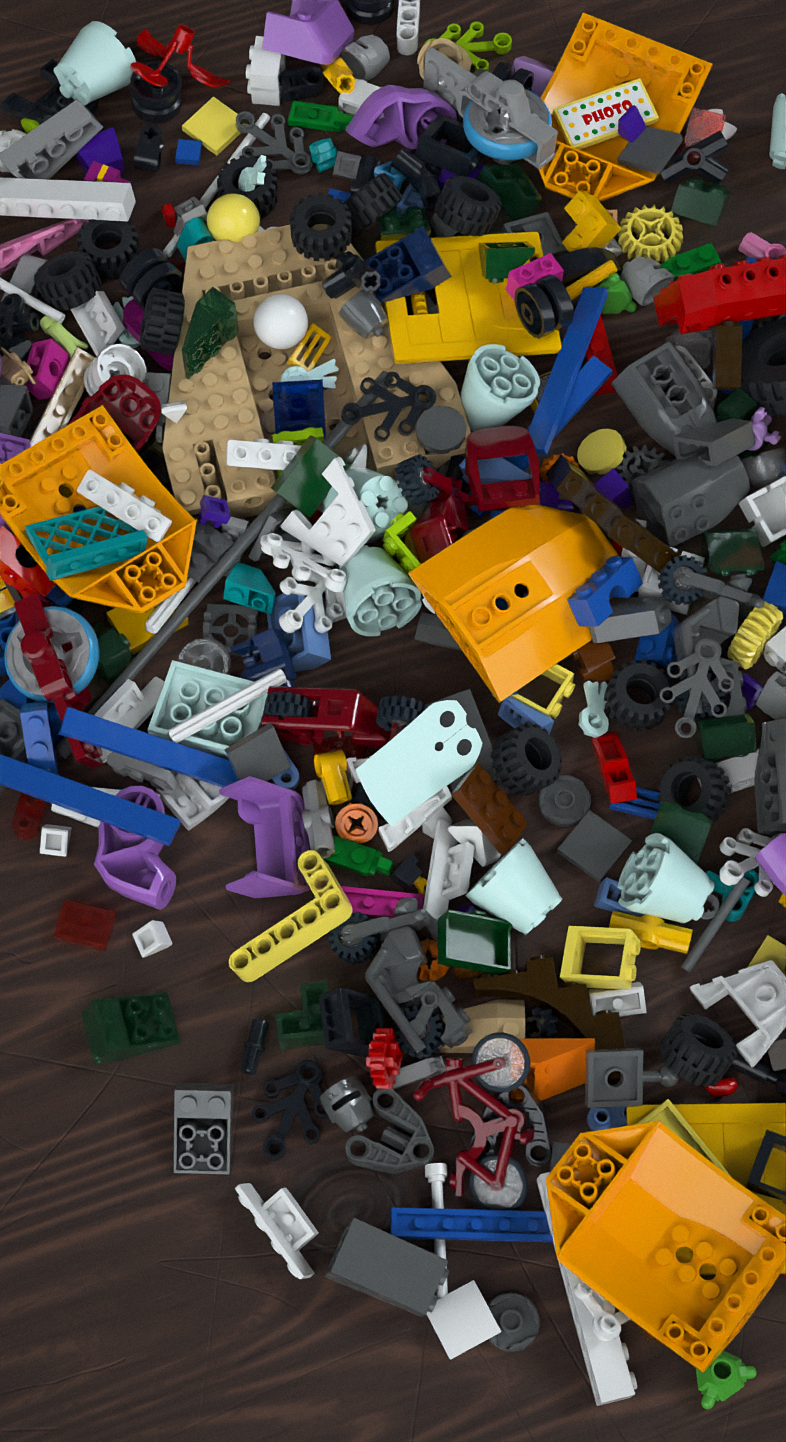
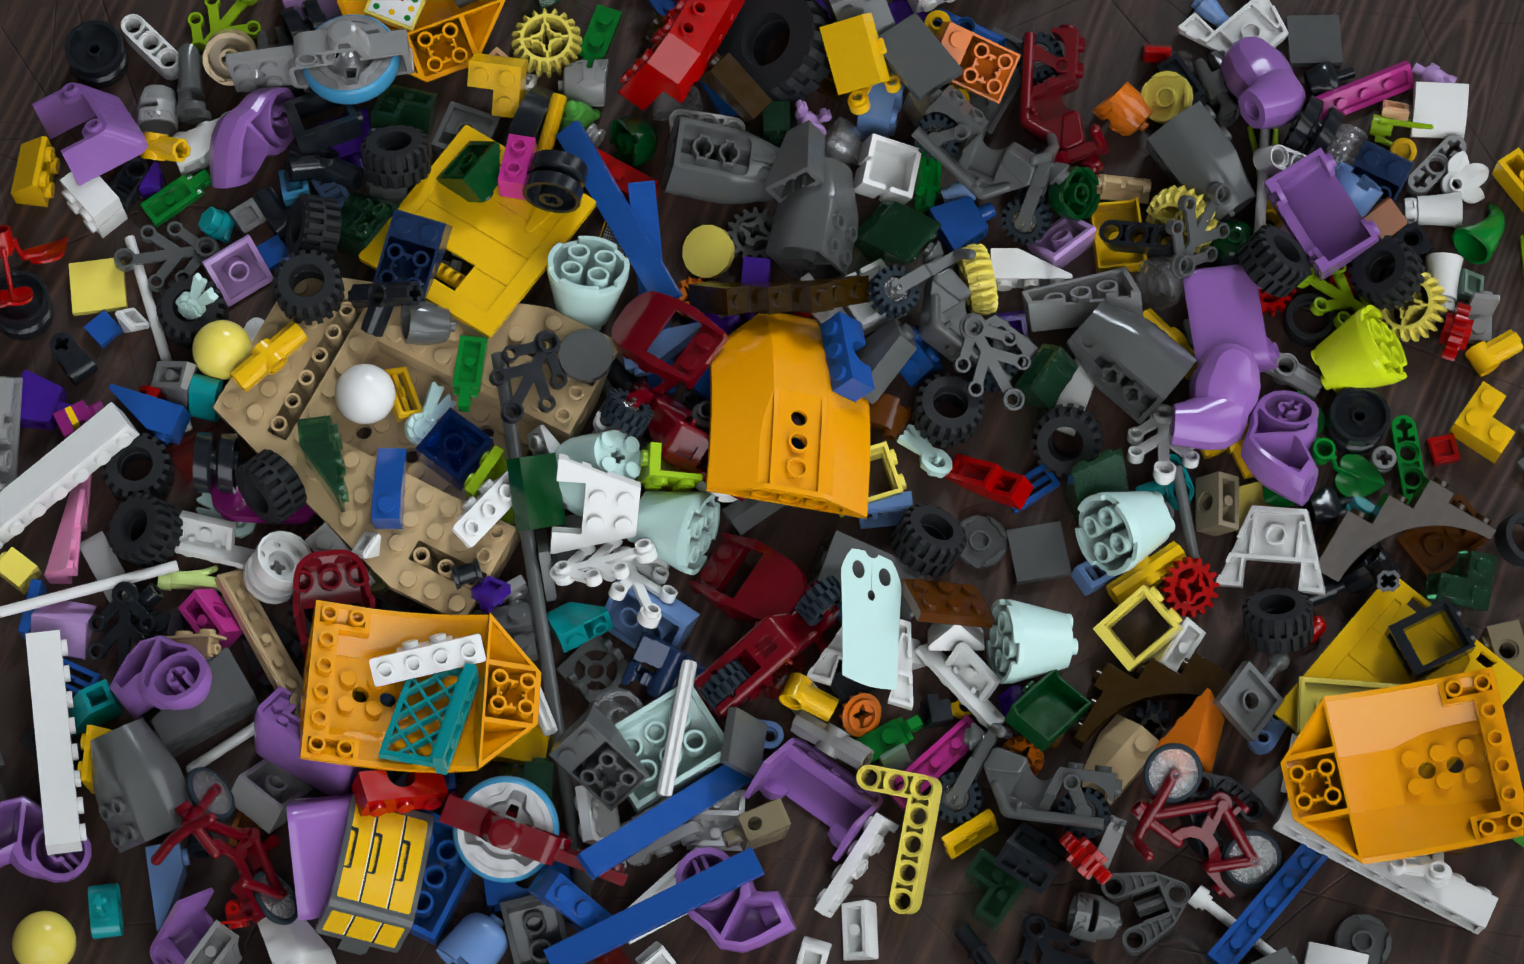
camera: 50 degrees left, 5 degrees up
(154, 224) = (160, 417): none -> blue slope
(158, 673) = (599, 758): none -> dark grey slope
(199, 955) = (859, 930): none -> white slope
(207, 820) = (758, 826): none -> dark tan torso
(210, 161) = (131, 320): none -> white slope
(211, 483) = (467, 573): none -> black bush
(226, 389) = (389, 489): none -> blue slope
(241, 908) = (855, 864): none -> white wing
(245, 28) = (35, 173): none -> yellow slope
(251, 245) = (269, 356): none -> yellow piece
(298, 182) = (238, 270): none -> lavender slope
(316, 93) = (152, 181): none -> dark purple slope
(336, 969) = (970, 834): none -> yellow tile
(346, 873) = (896, 758): none -> sand green slope
(357, 367) = (469, 370): none -> green hinge
(385, 678) = (769, 590): none -> dark red slope
(399, 59) = (190, 87): none -> dark grey piece
(612, 317) = (596, 135): none -> light grey bush
(635, 341) = (633, 139): none -> dark green cylinder
(678, 962) = (1196, 577): none -> red gear
(749, 935) = (1217, 503): none -> dark tan brick

